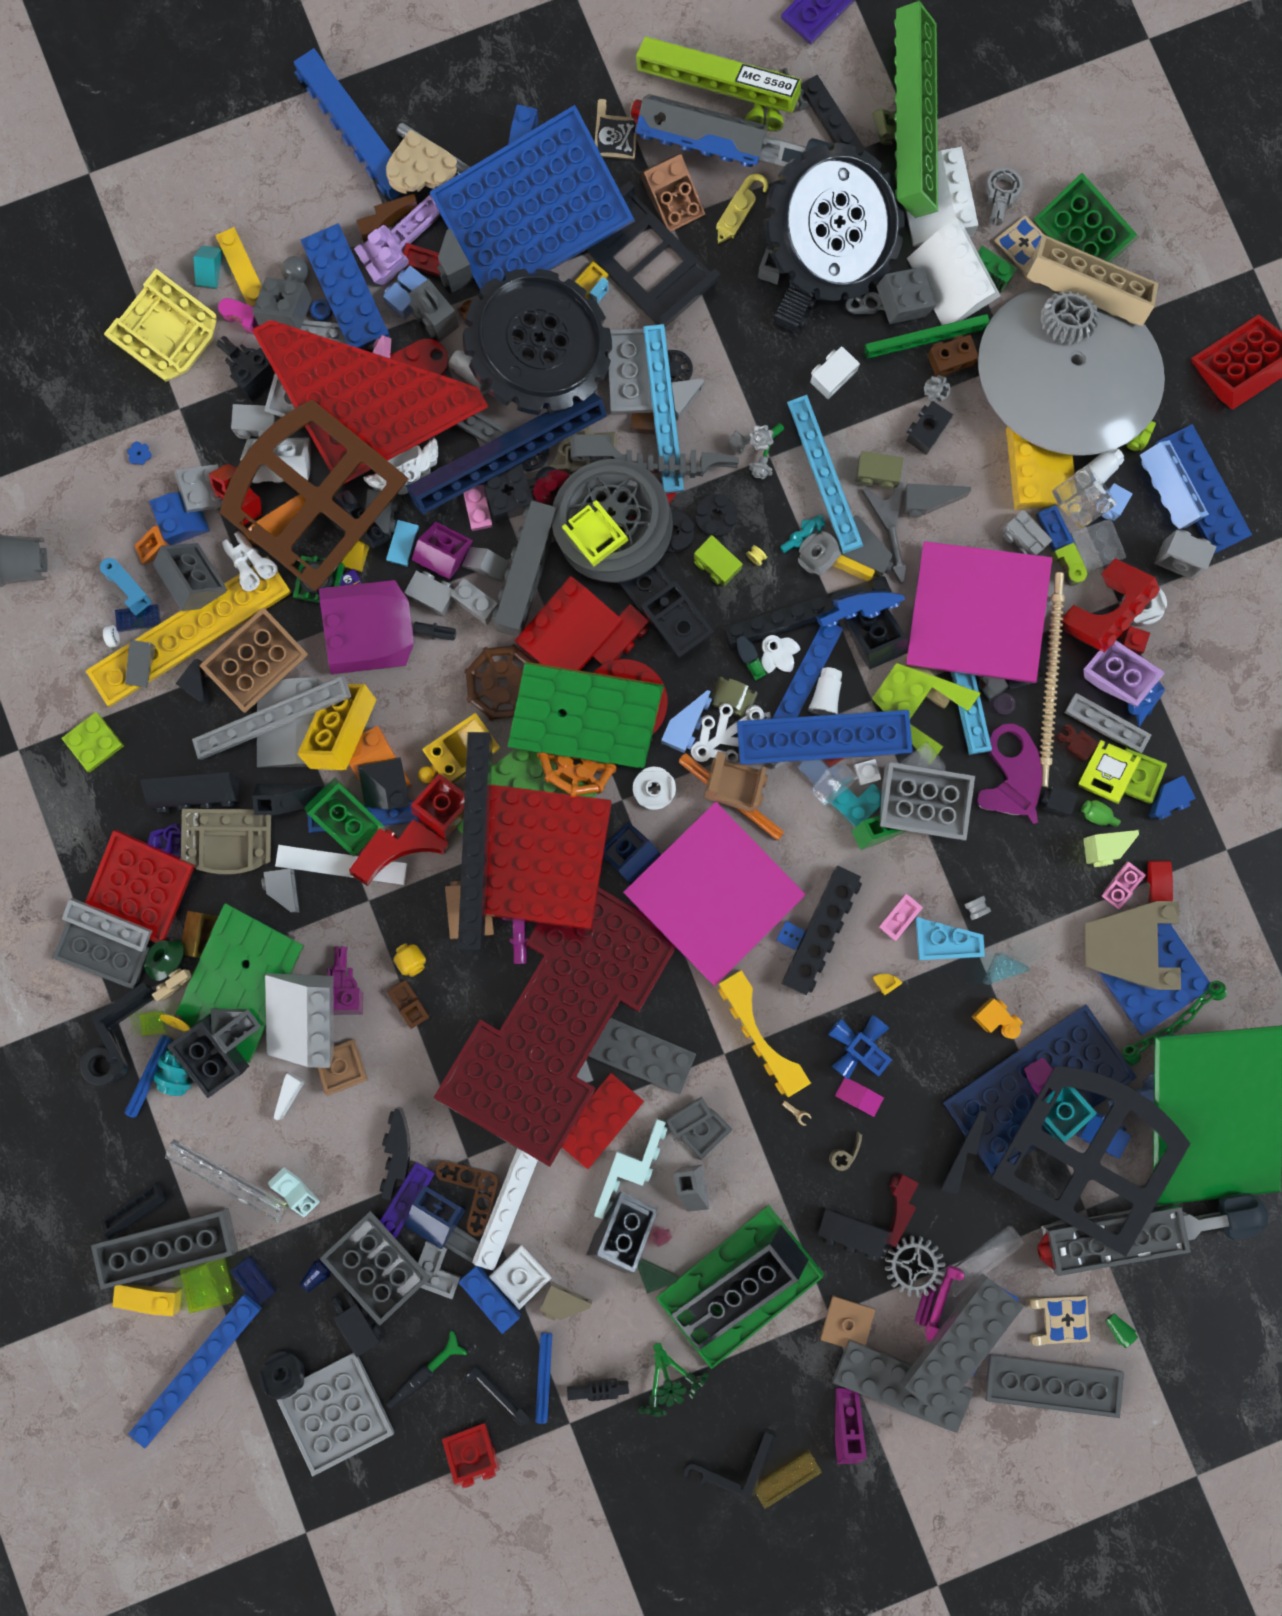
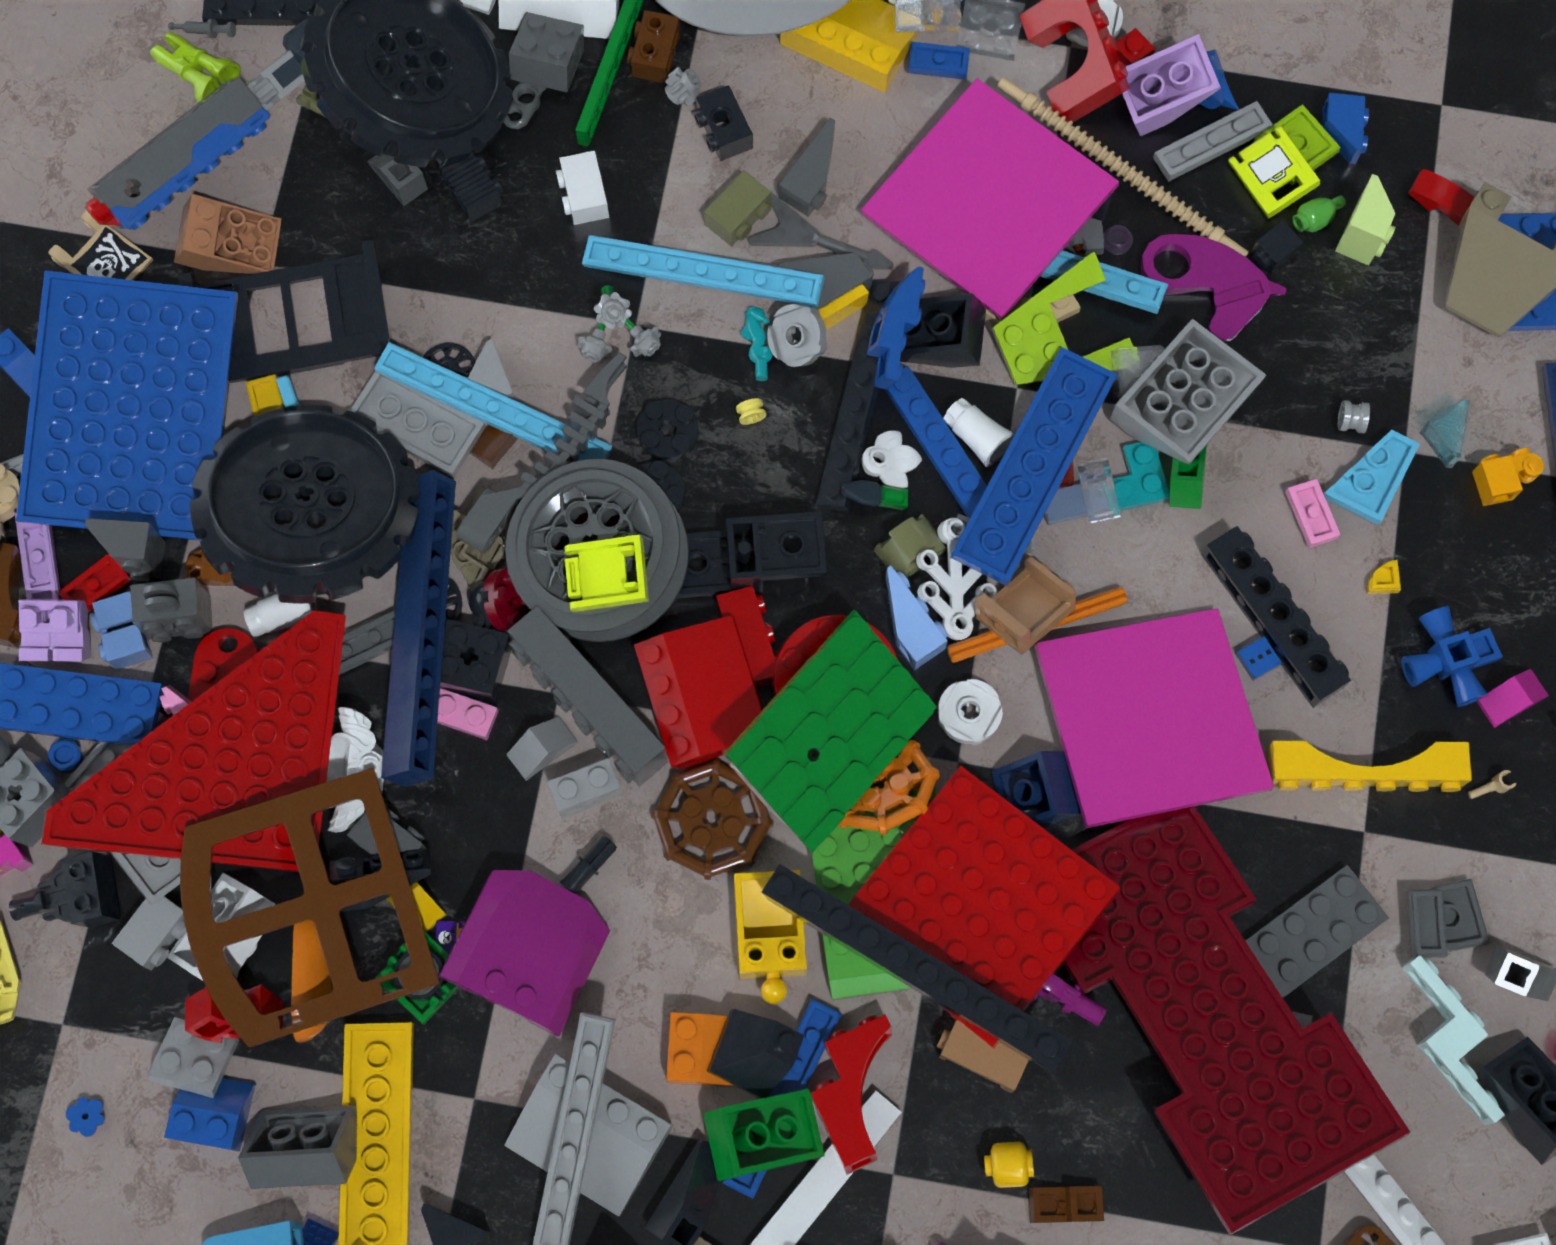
camera: 55 degrees left, 10 degrees down
(149, 545) = (223, 1176): orange slope -> none
(243, 557) = (325, 1056): white piece -> none
(253, 660) = (476, 1127): medium nougat slope -> none
(337, 731) = (649, 1069): yellow brick -> none
(402, 543) = (445, 837): medium azure tile -> none
(430, 593) = (536, 838): light grey brick -> none
(440, 806) = (832, 992): red slope -> none
(441, 550) = (489, 791): magenta slope -> none
(601, 1120) = (1369, 1025): red plate -> none
(717, 561) = (728, 461): lime brick -> none
(718, 74) = (123, 96): lime brick -> none
(739, 208) = (302, 176): light yellow plate -> none
(867, 772) = (1105, 443): white plate -> none
(1026, 534) = (926, 94): light grey brick -> none
(1071, 563) = (993, 65): lime leg -> none
(1080, 744) = (1218, 183): clear red plate -> none
(1123, 884) = (1418, 239): bright pink slope -> none

